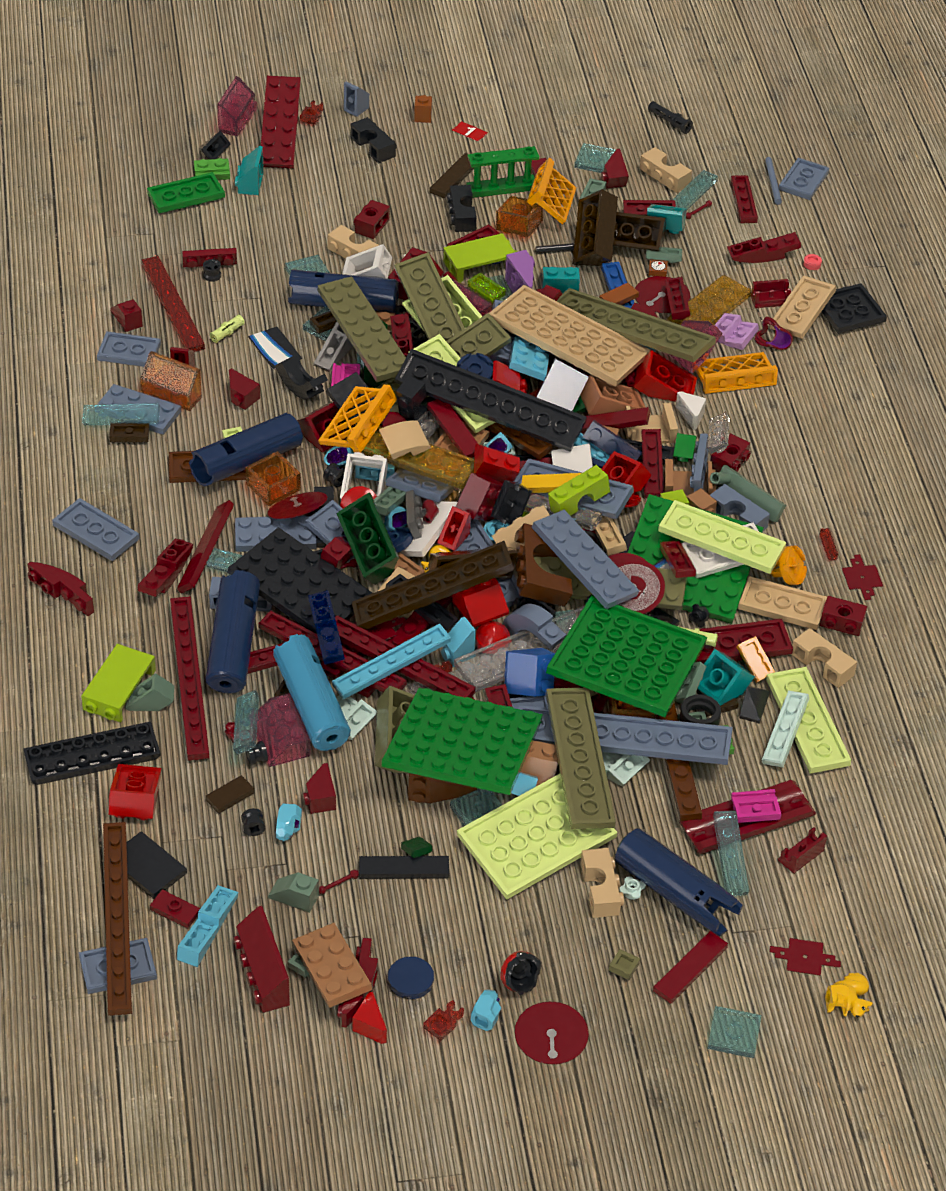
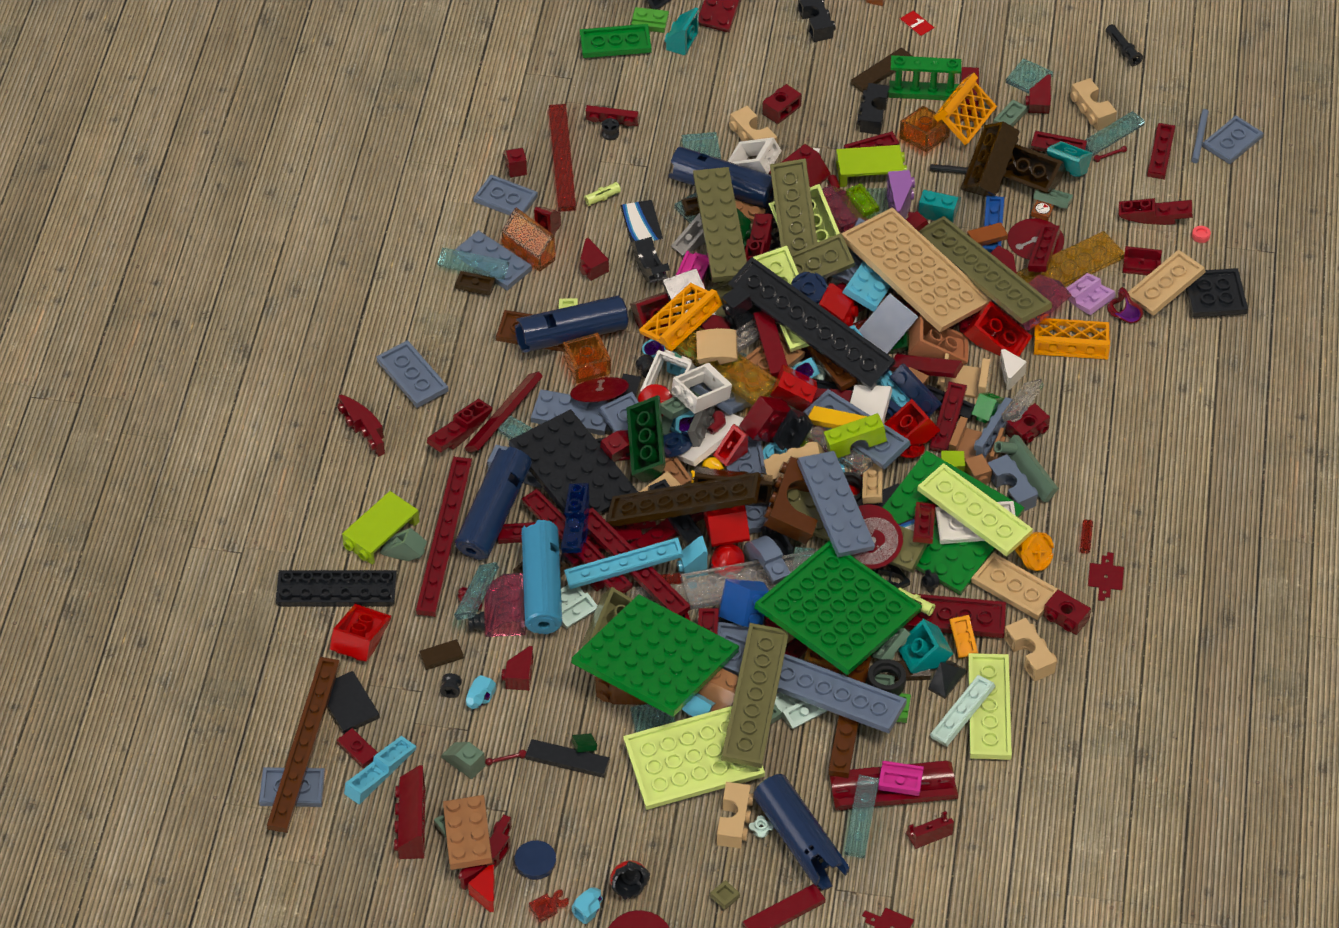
camera: 20 degrees right, 5 degrees up
(422, 480) = (711, 377): none -> white window

